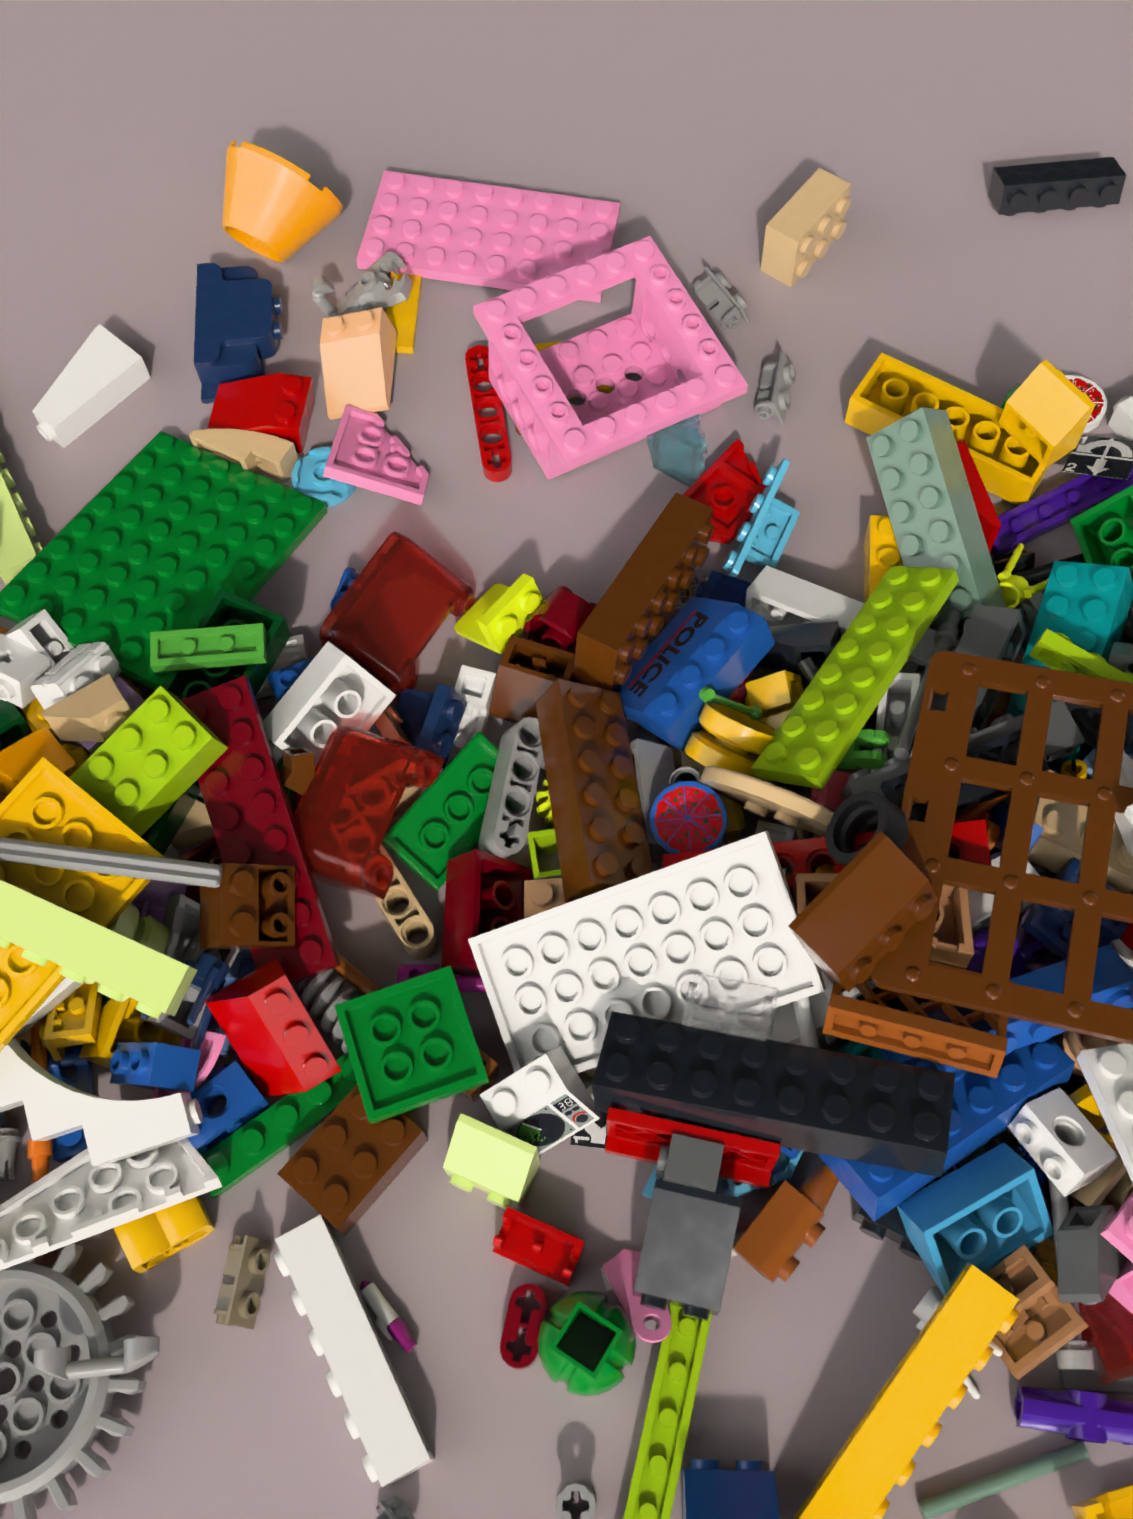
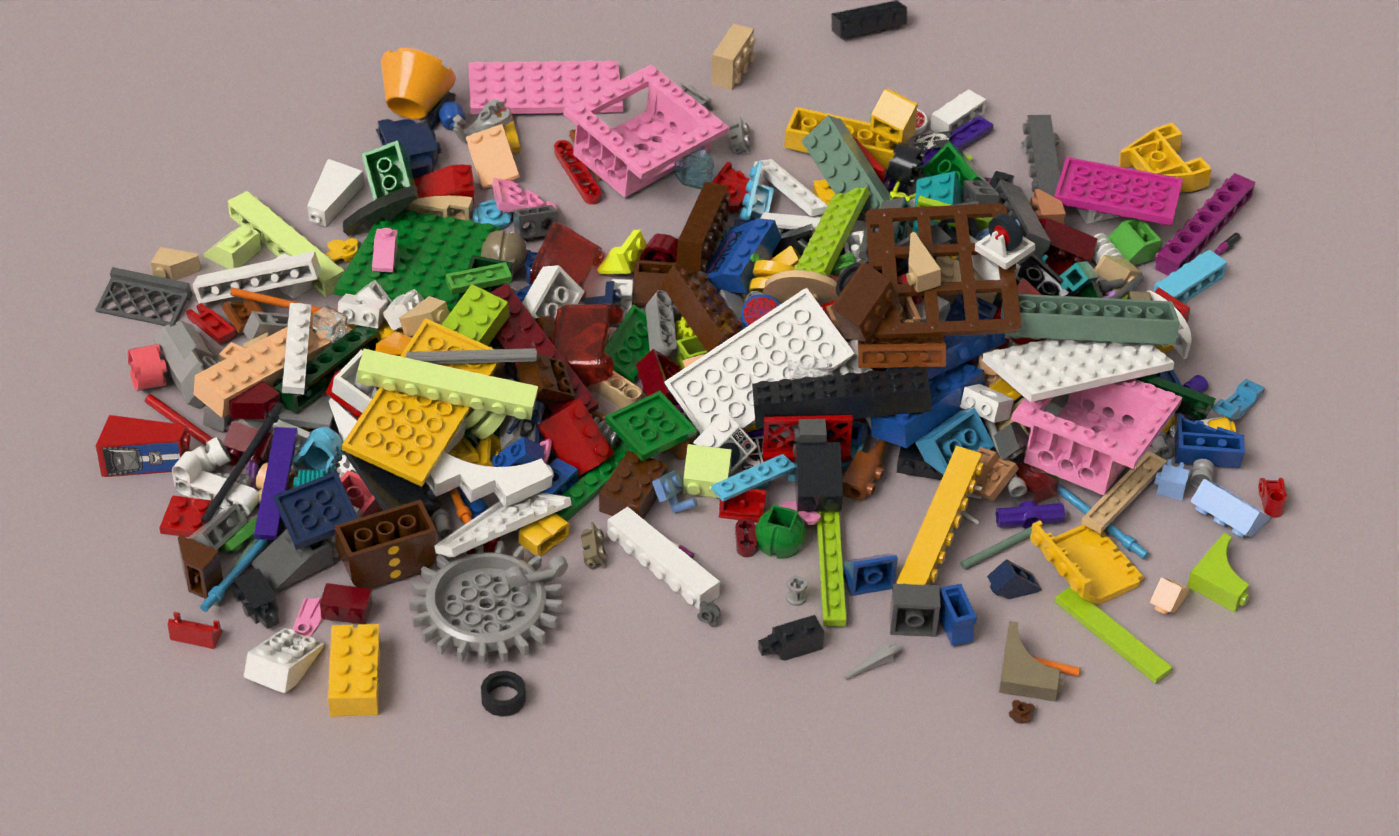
camera: 20 degrees left, 20 degrees down
(64, 501) = (342, 249): none -> yellow plate
(94, 542) = (385, 250): none -> bright pink slope
(140, 441) = (385, 206): none -> pearl dark grey slope
(170, 381) = (388, 169): none -> green brick
(300, 574) = (507, 248): none -> dark tan piece
(312, 253) = (434, 117): none -> black axle
(328, 262) = (448, 112): none -> blue head
(379, 510) = (536, 217): none -> dark grey brick
(407, 1181) = (666, 489): none -> medium blue plate
(568, 1202) = (753, 478): none -> medium azure bracket
(830, 522) = (792, 188): none -> white plate
(1004, 846) = (923, 269): none -> tan slope
(1043, 513) = (905, 164): none -> black brick

